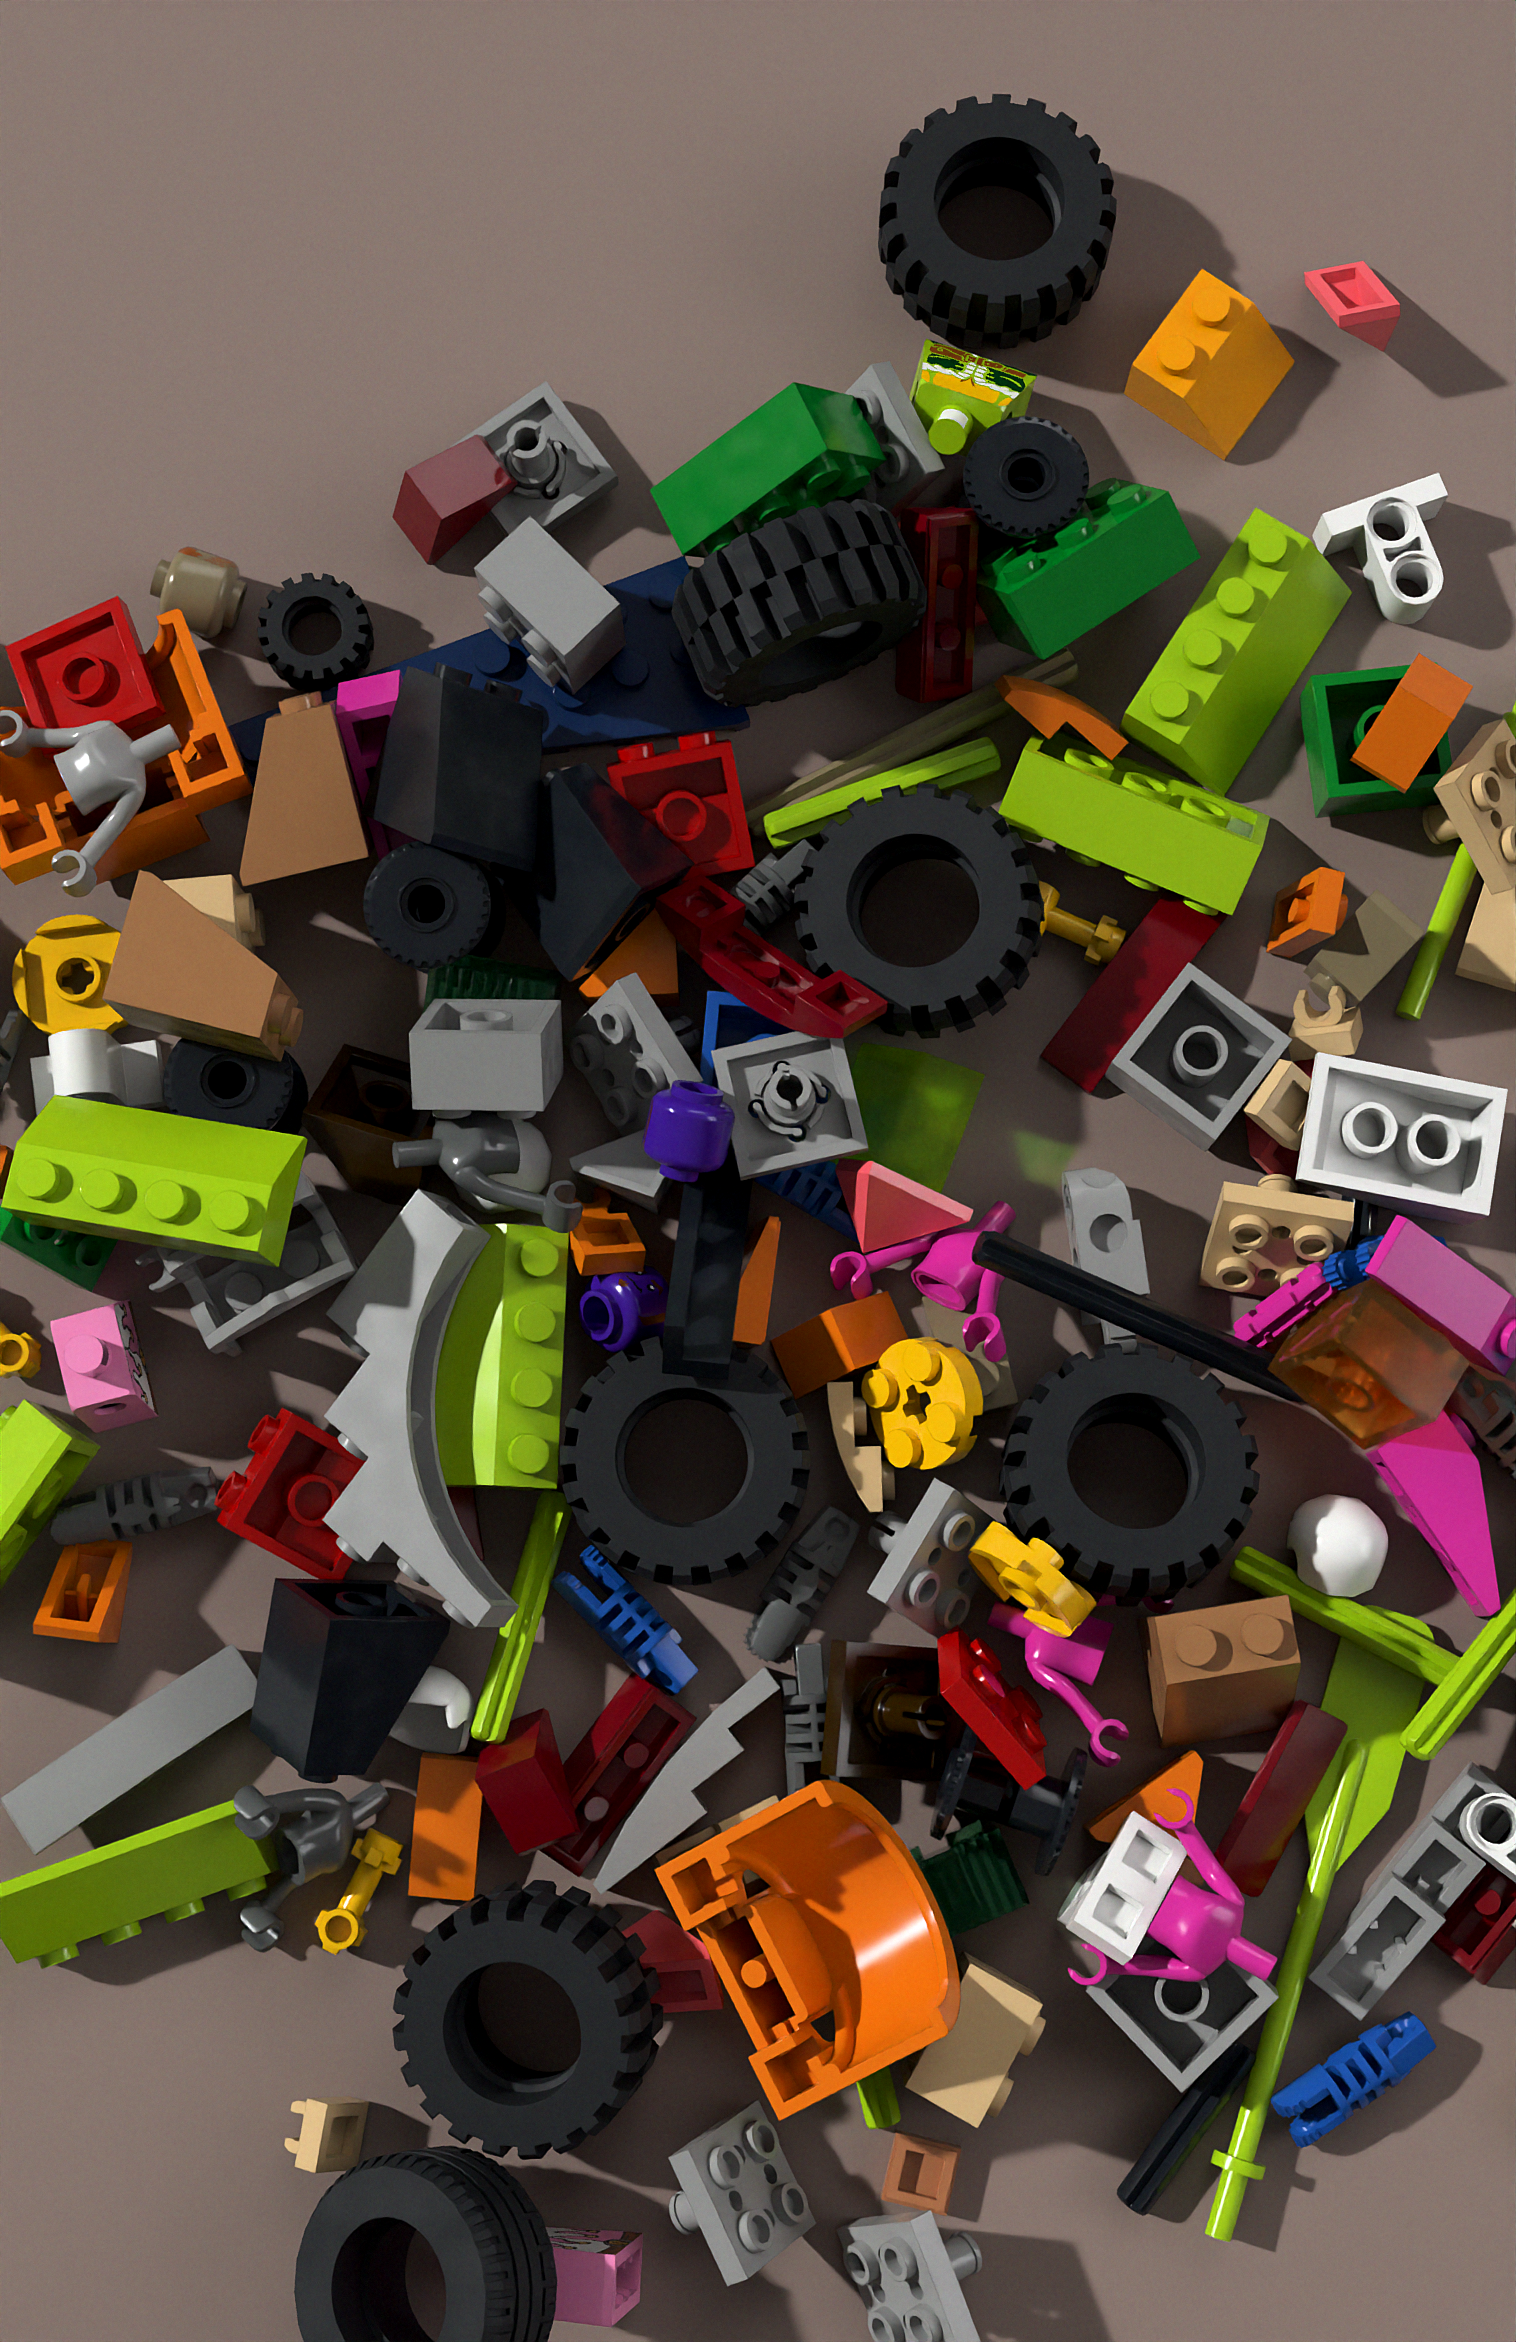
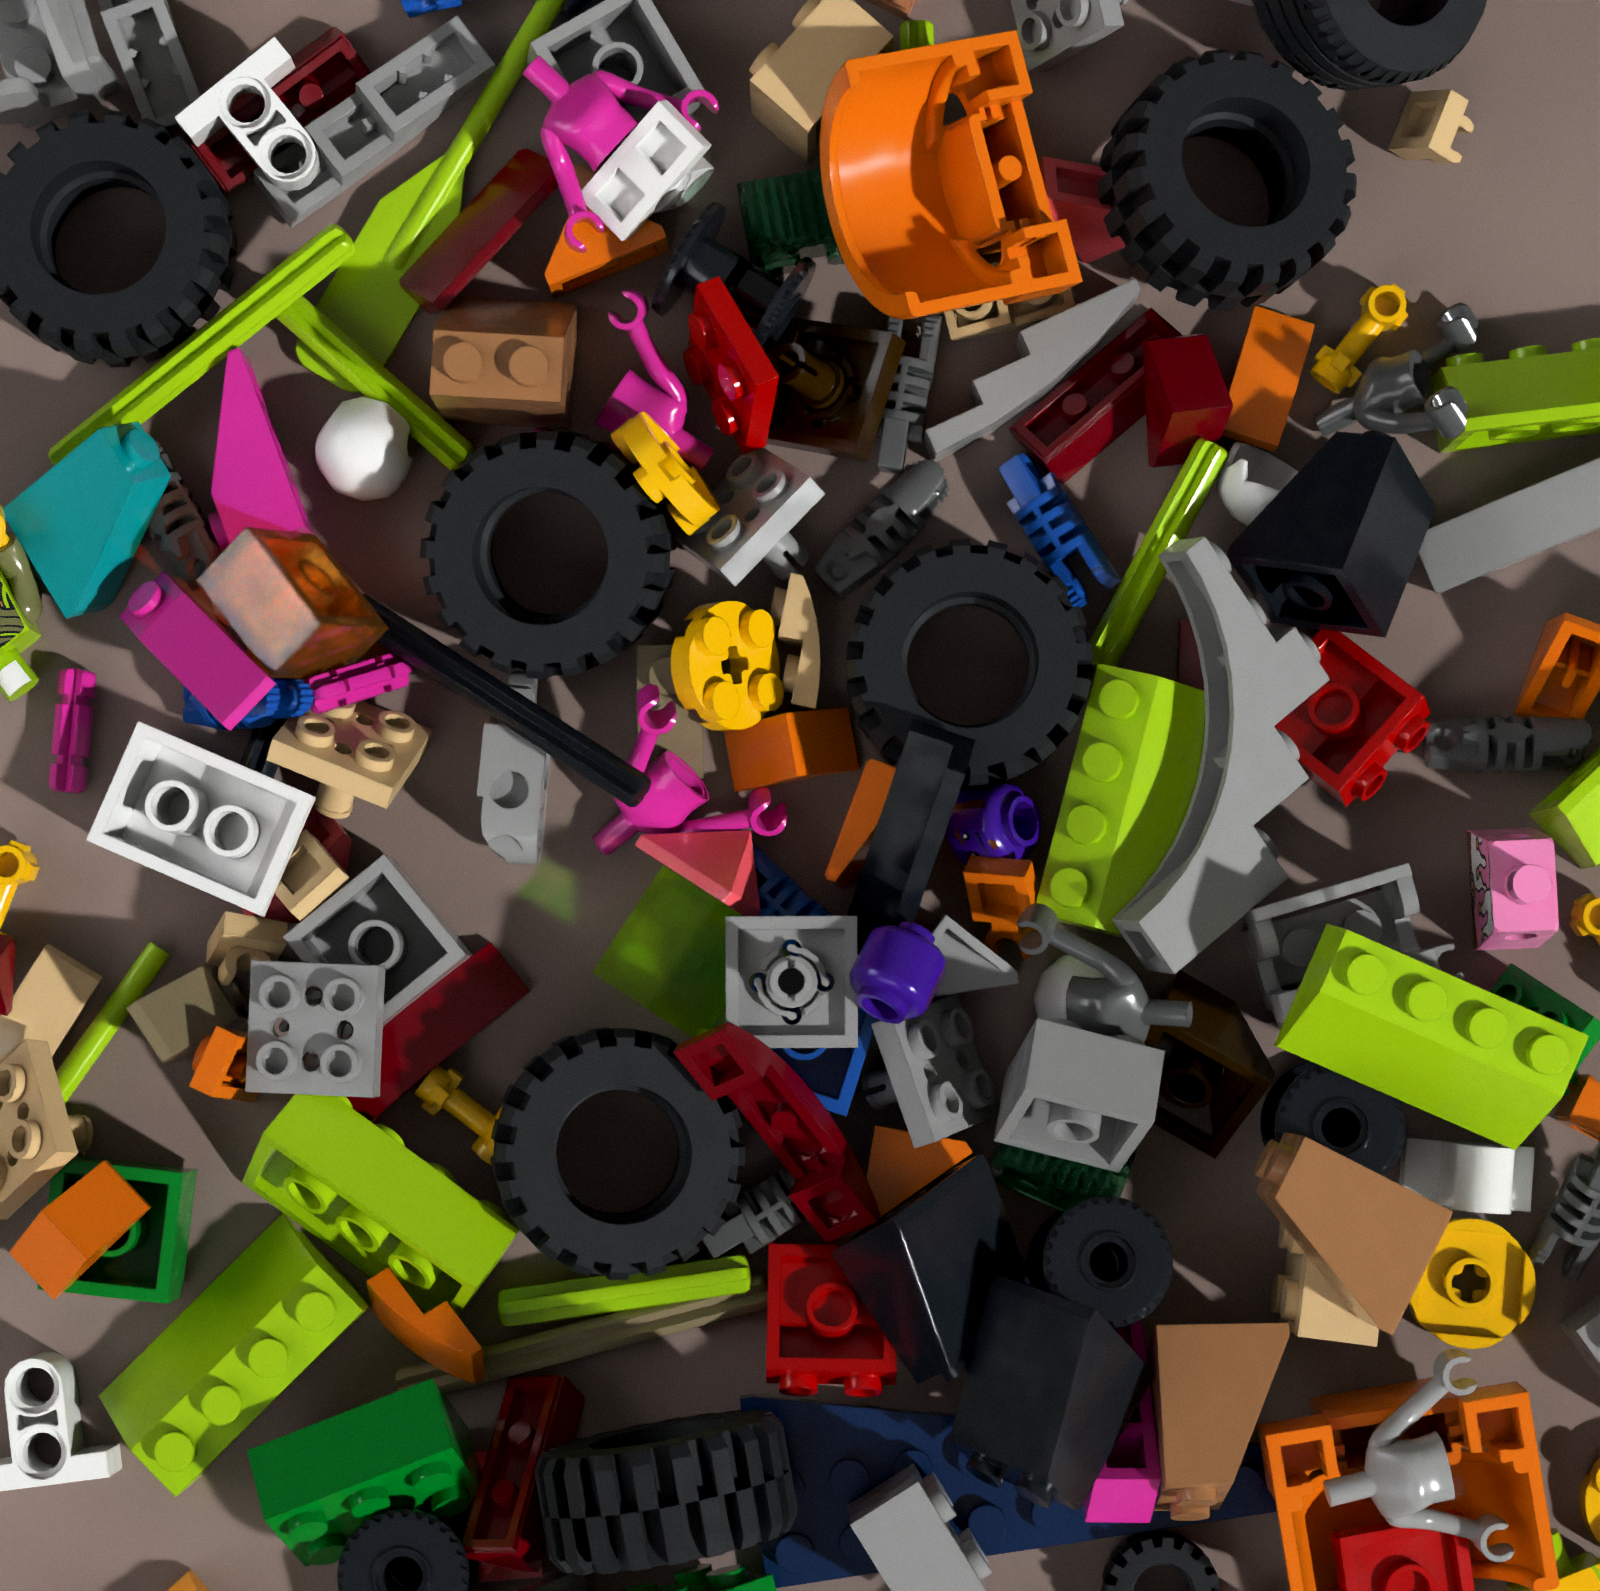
camera: 170 degrees left, 5 degrees up
(1211, 986) = (339, 1029): none -> light grey plate

